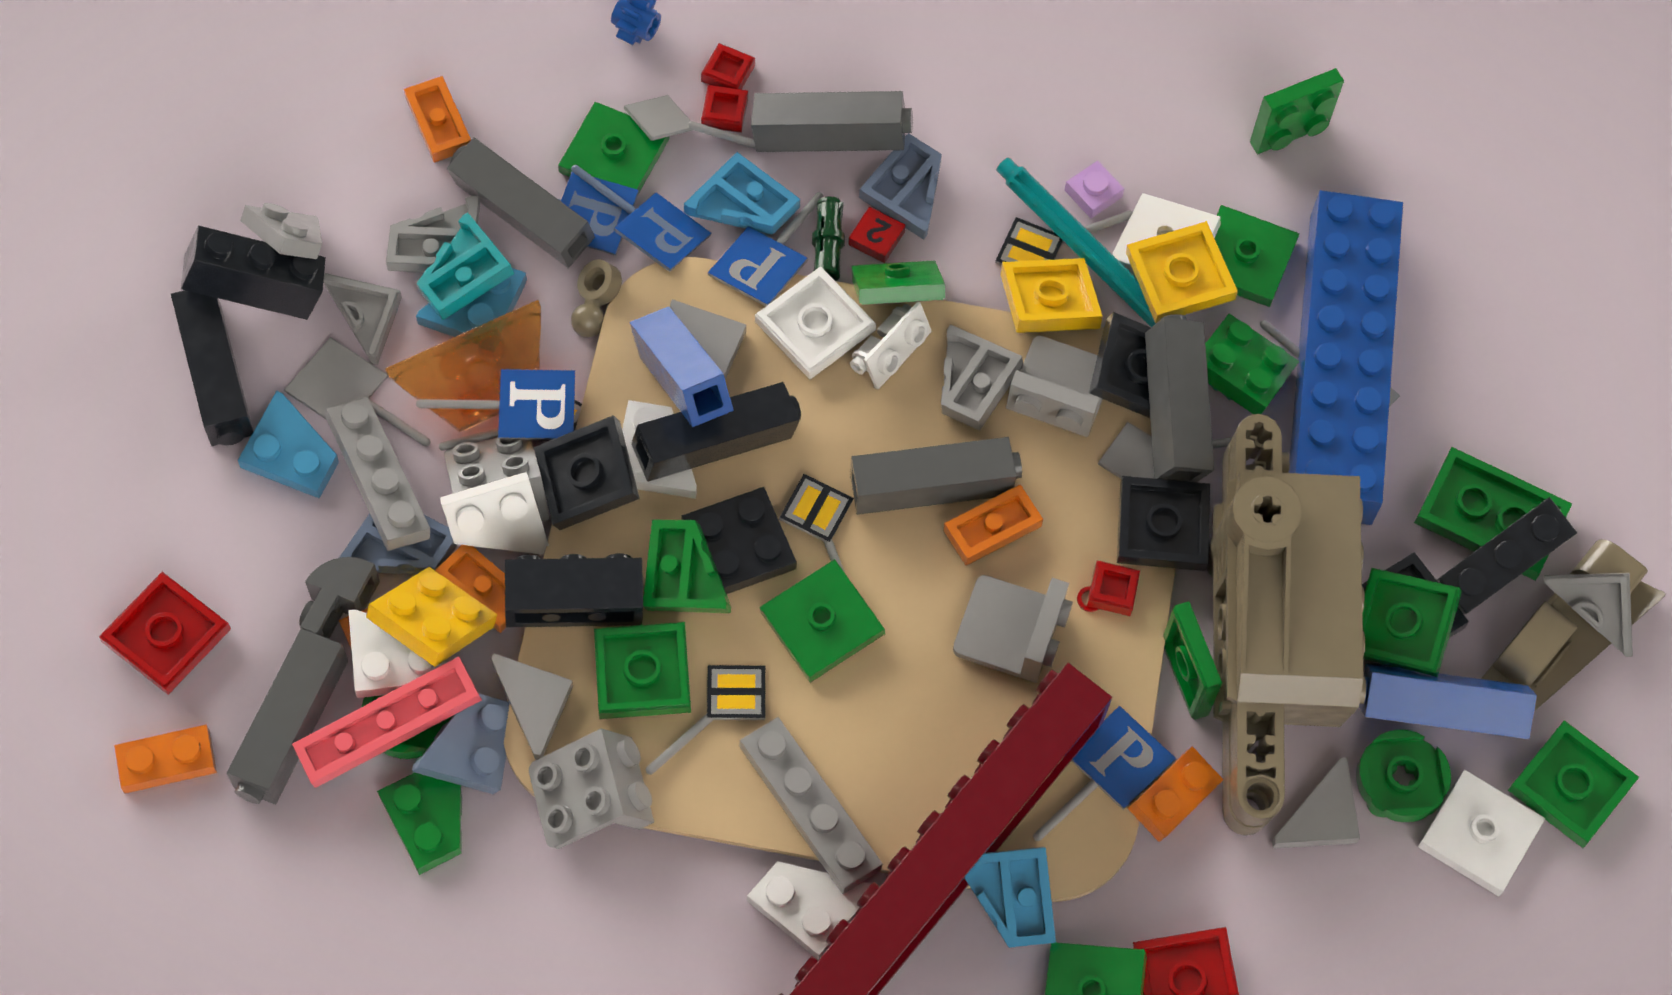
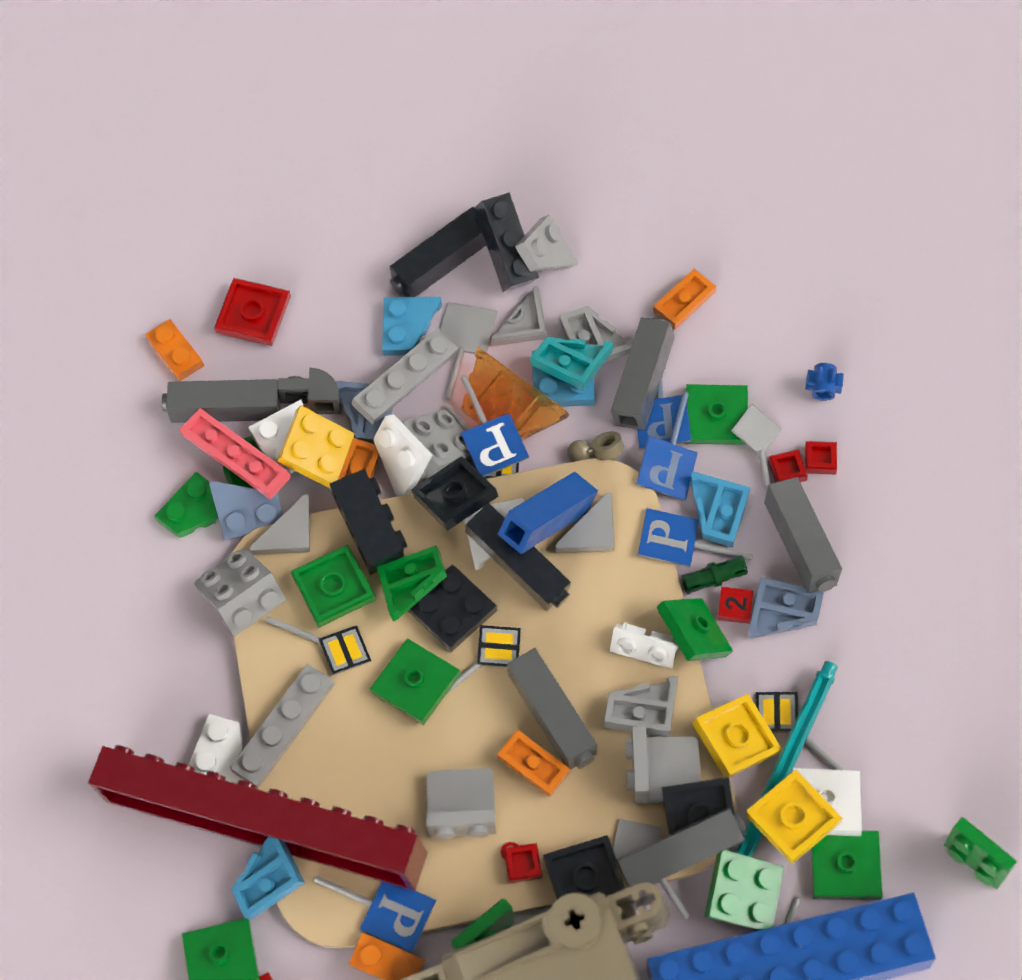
camera: 75 degrees right, 0 degrees up
(815, 322) = (636, 588): white plate -> none
(1094, 189) = (848, 737): lavender plate -> none

